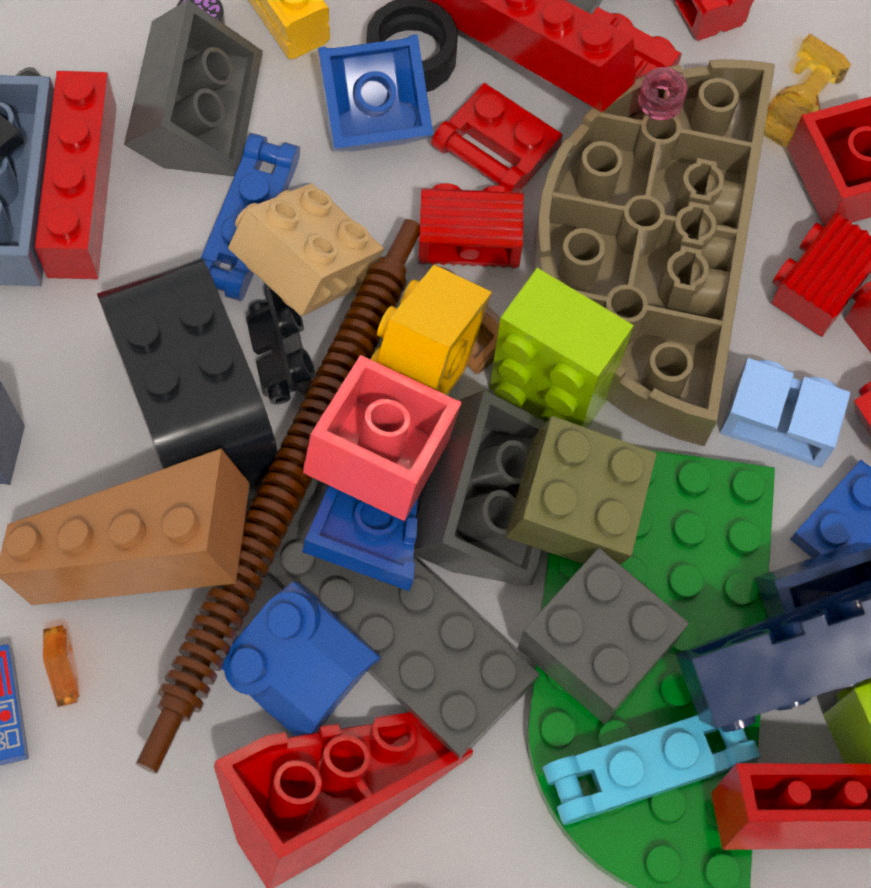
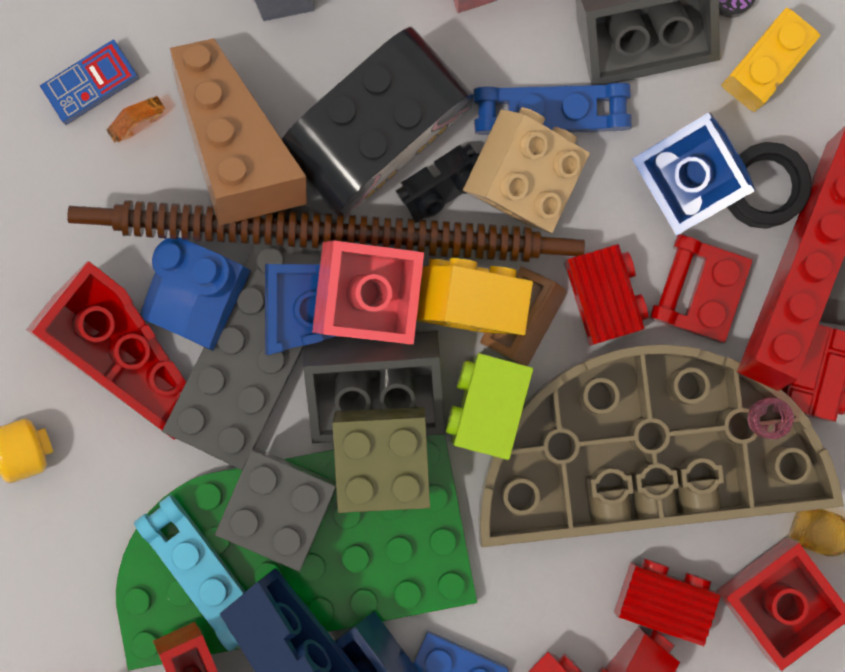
camera: 75 degrees right, 20 degrees up
(785, 413) = (527, 599): light blue piece -> none

